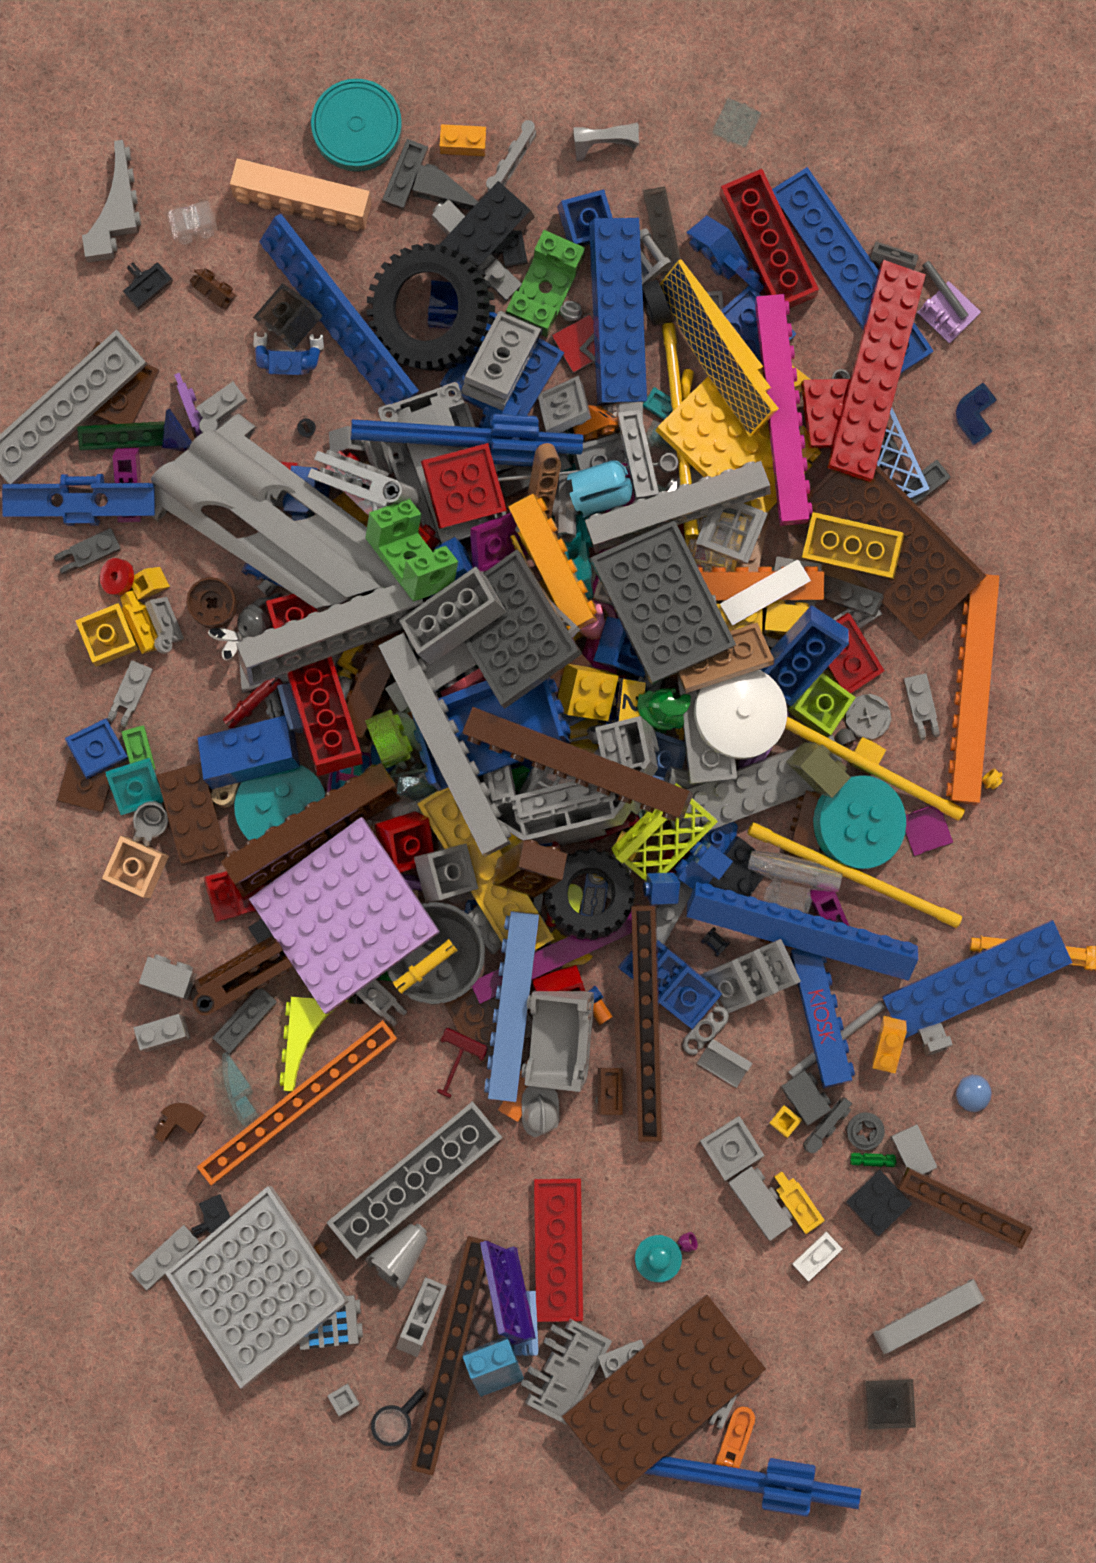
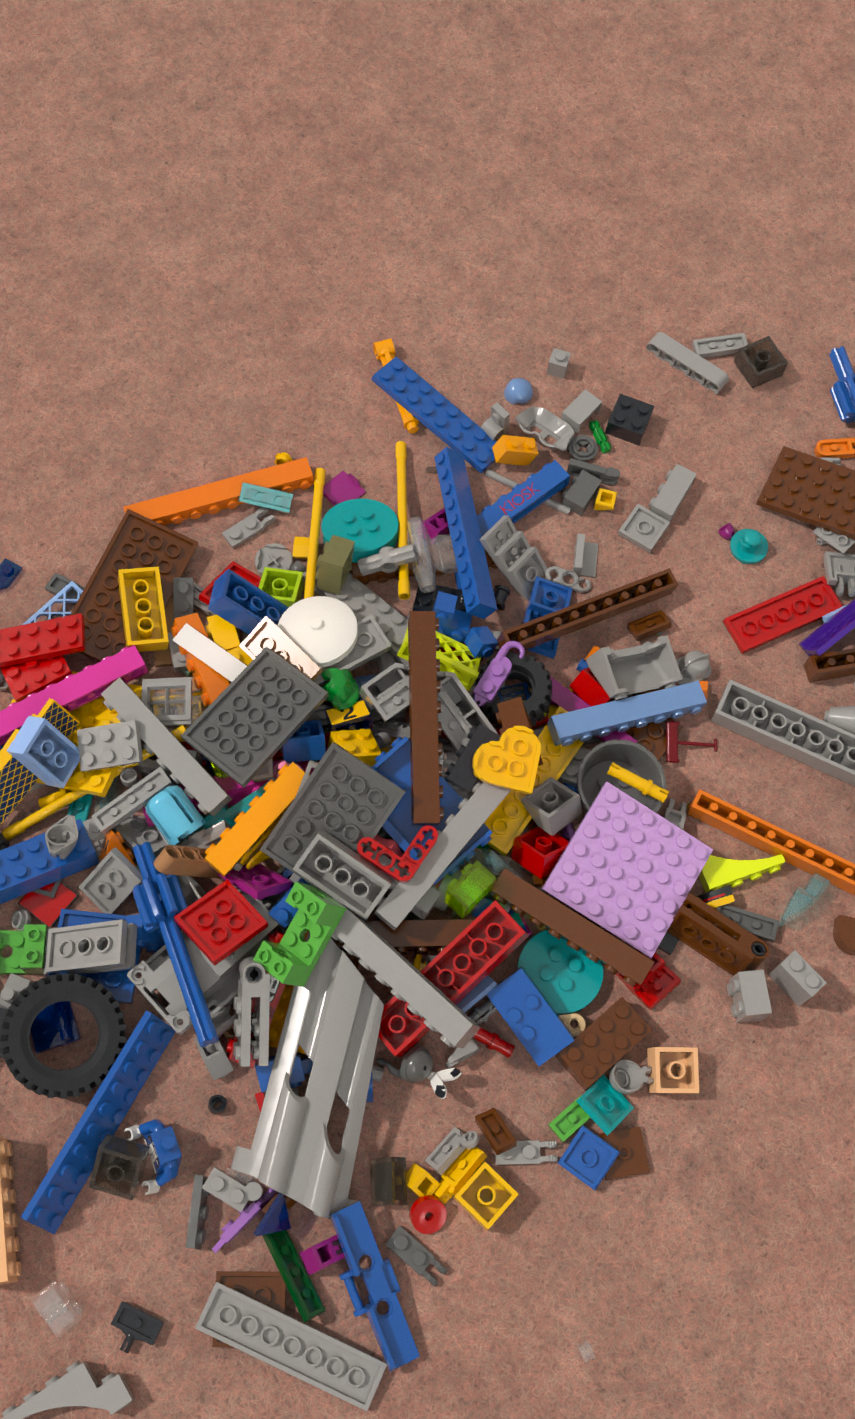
camera: 115 degrees left, 15 degrees down
(160, 672) = (495, 1131): none -> reddish brown plate
(161, 553) = (388, 1181): none -> clear smoke brick
(212, 589) = (426, 1106): reddish brown wheel -> none
(215, 372) = (198, 1213): none -> dark grey plate
(220, 291) = (112, 1266): reddish brown hinge -> none
(280, 999) = (718, 897): none -> sticker
(437, 679) = (405, 860): none -> red beam
(491, 829) = (510, 761): none -> yellow plate
(517, 798) = (461, 772): none -> black brick
(608, 876) = (496, 674): none -> medium lavender plate
(623, 370) = (62, 837): none -> light grey hat
(701, 450) = (109, 746): none -> light grey plate
(720, 384) = (45, 751): none -> light blue brick
(798, 1203) = (657, 471): yellow hinge -> none
(800, 829) = (388, 559): none -> light grey piece
(817, 1256) = (687, 445): white plate -> none
(911, 1108) = (548, 424): none -> light grey piece
(936, 1370) = (719, 345): none -> light grey plate
(946, 736) = (265, 497): none -> teal hinge
(964, 1207) = (603, 364): reddish brown plate -> none
(989, 1157) = (558, 363): none -> light grey brick

